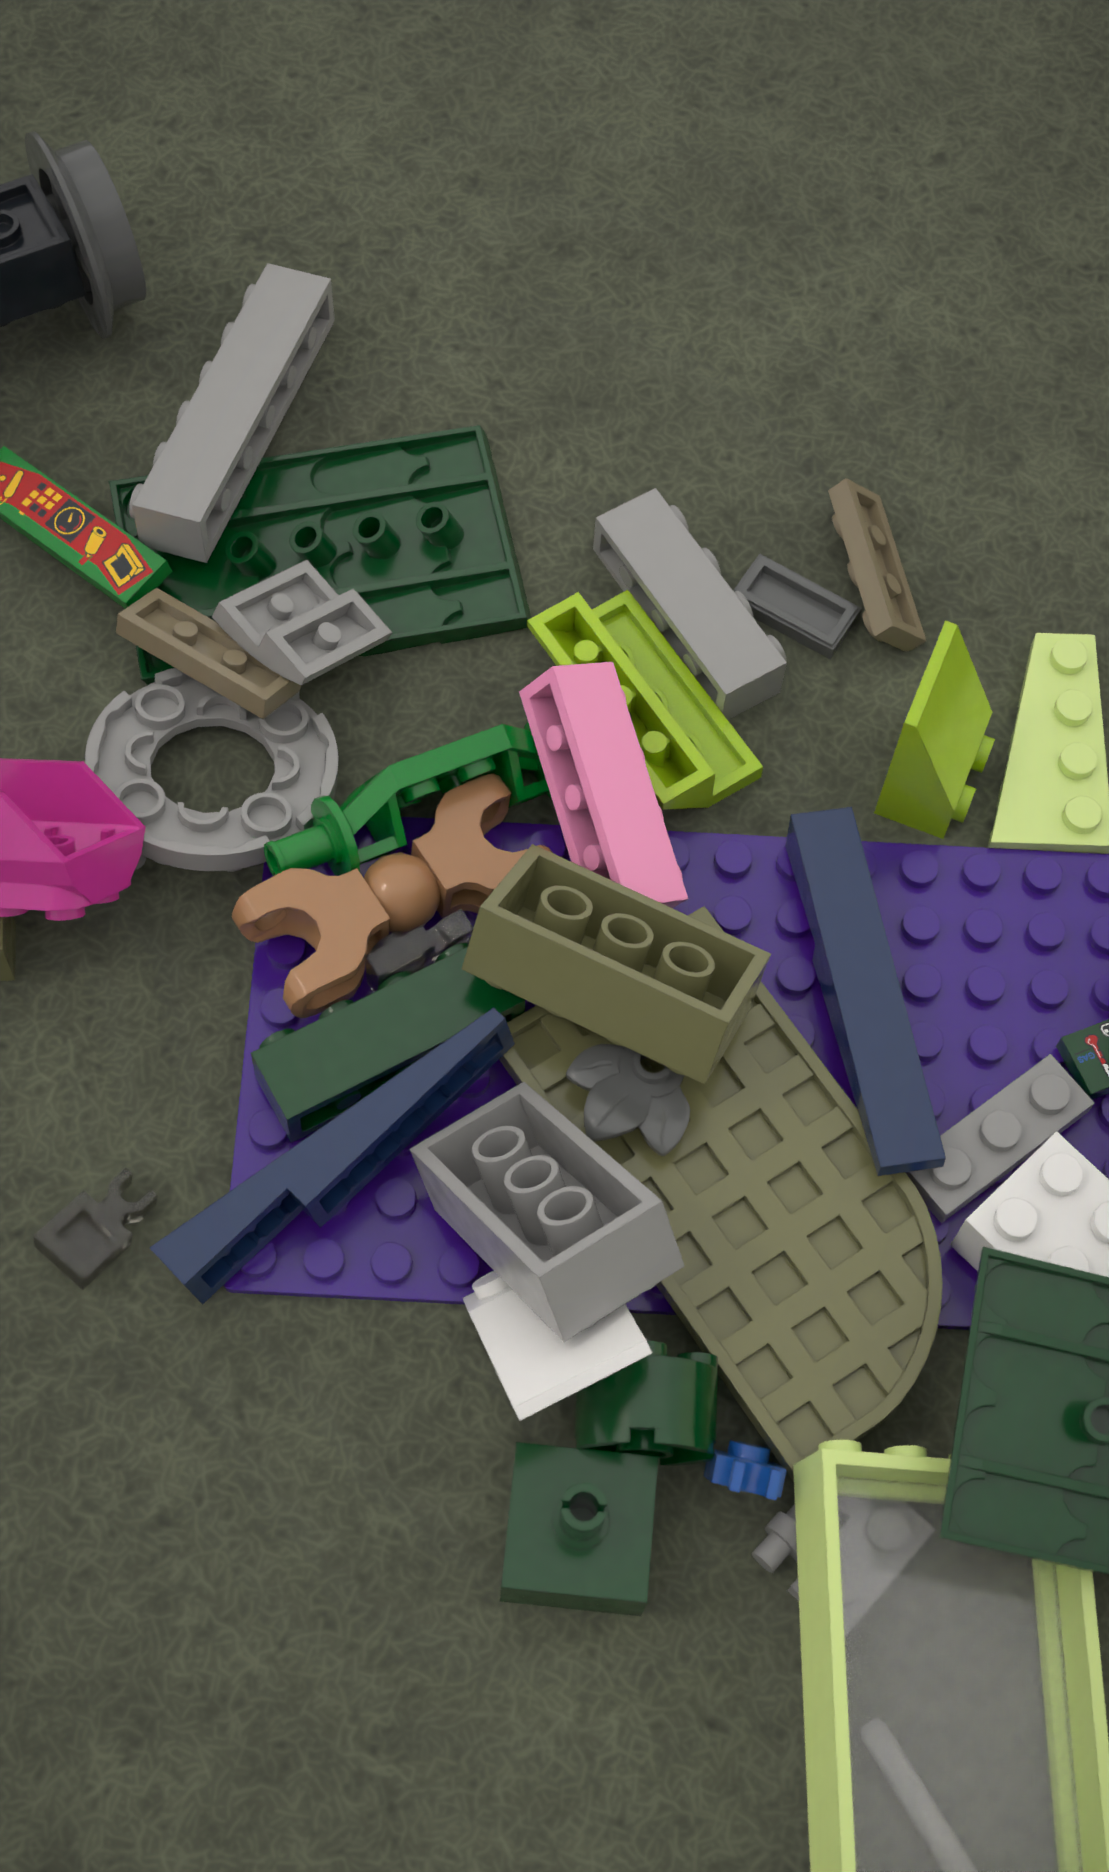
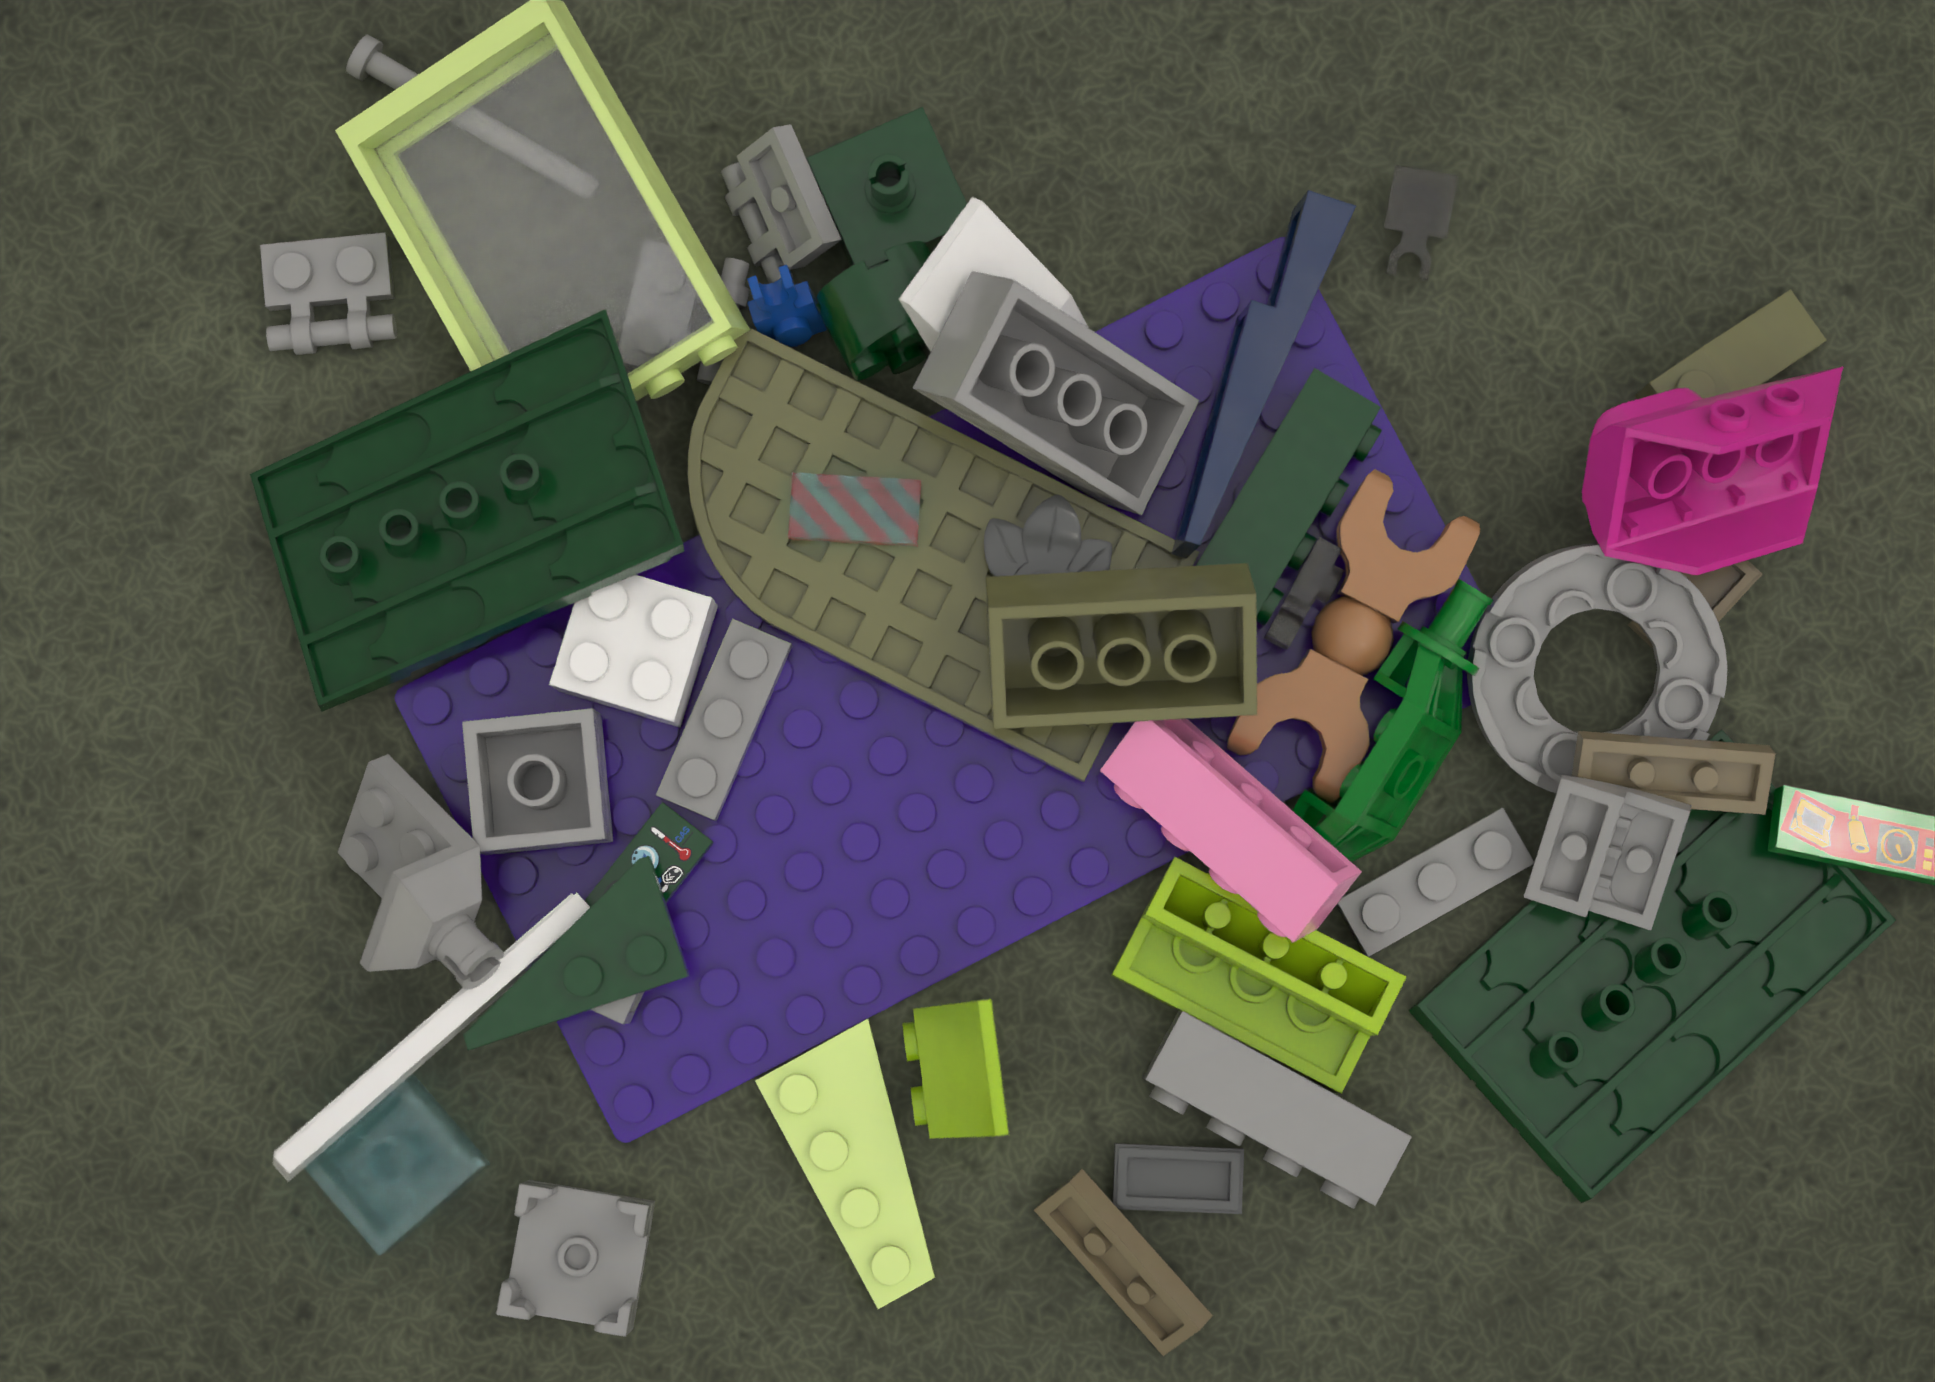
camera: 155 degrees right, 20 degrees up
(233, 413) = (1829, 1061): light grey brick -> none
(441, 699) = (1434, 882): none -> light grey plate
(695, 1580) = (779, 203): none -> light grey plate
(783, 1236) = (854, 509): none -> clear light blue tile
(863, 991) = (905, 779): dark blue slope -> none

